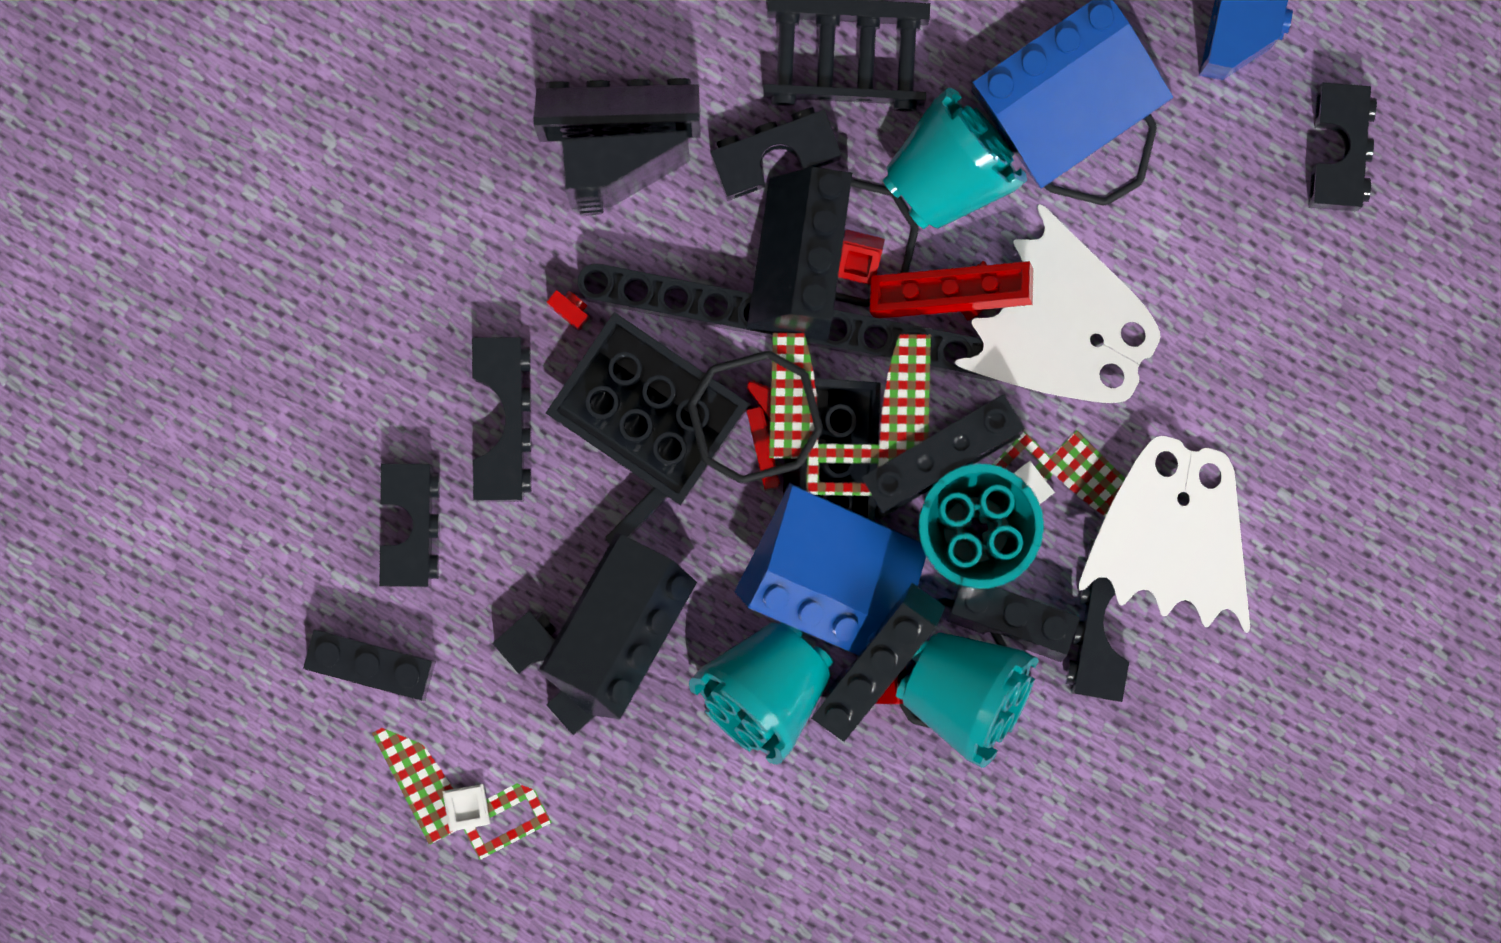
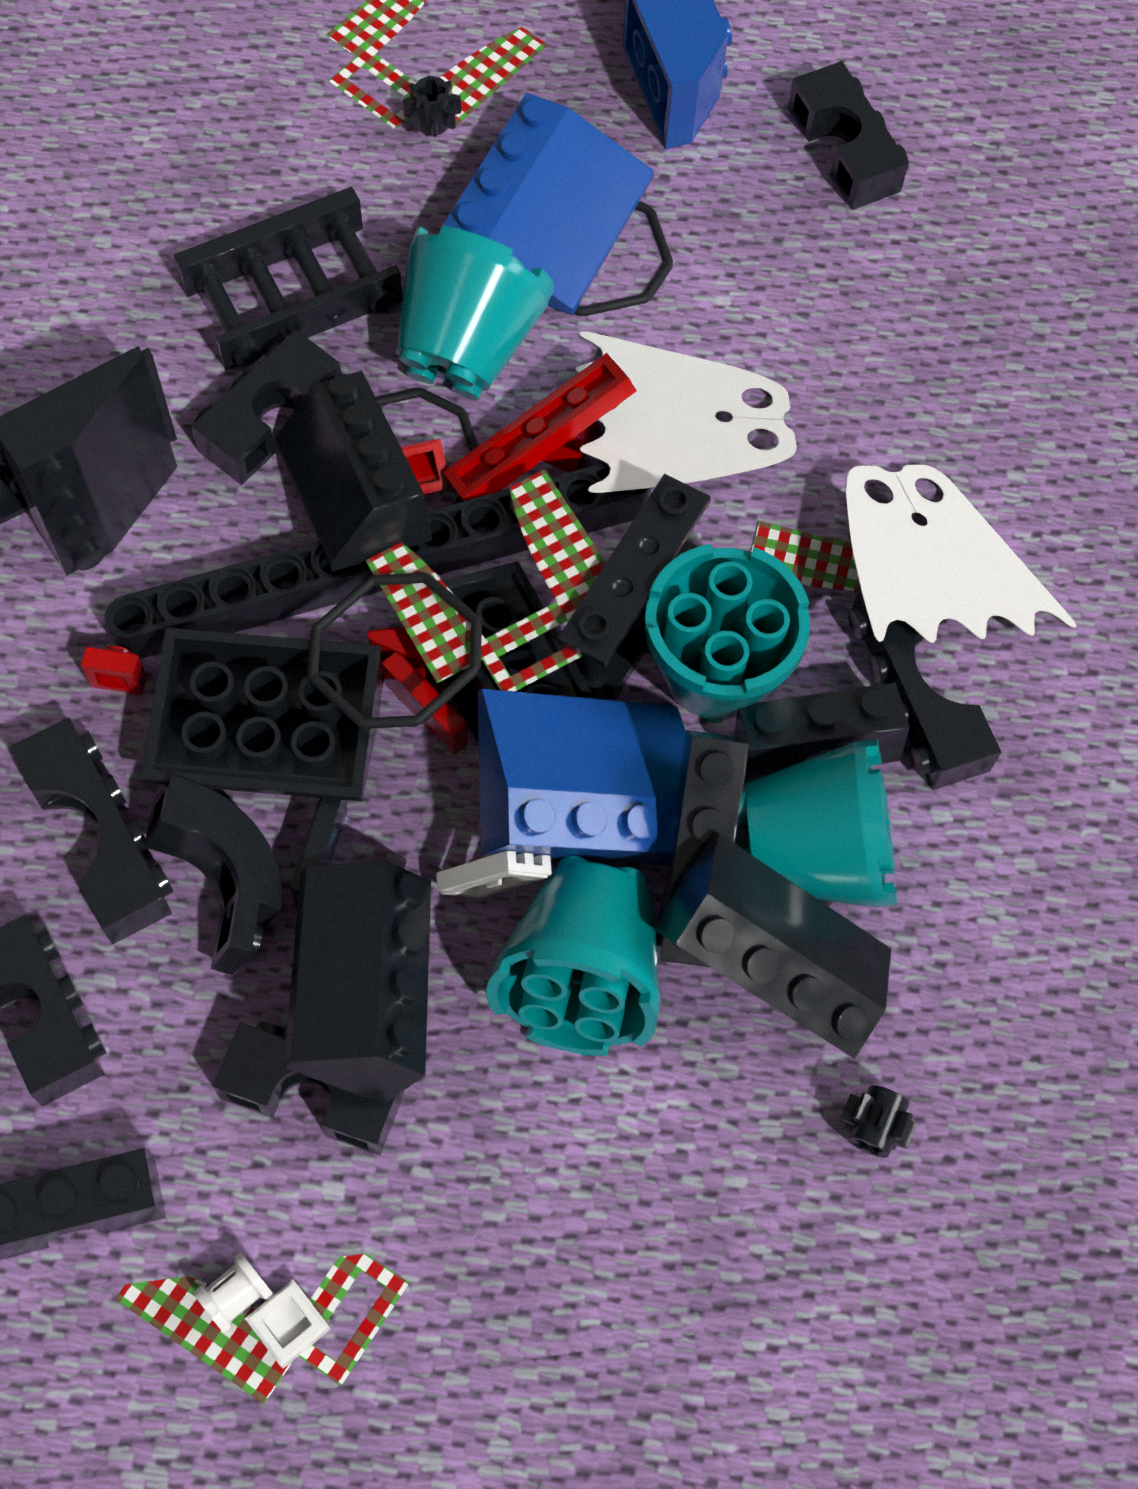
camera: 30 degrees left, 20 degrees down
(442, 772) = (232, 1293): none -> white bush
(579, 492) = (230, 852): none -> black arch
(725, 596) = (493, 874): none -> white tile
(888, 756) = (780, 944): none -> black slope
(890, 891) = (878, 1121): none -> black gear

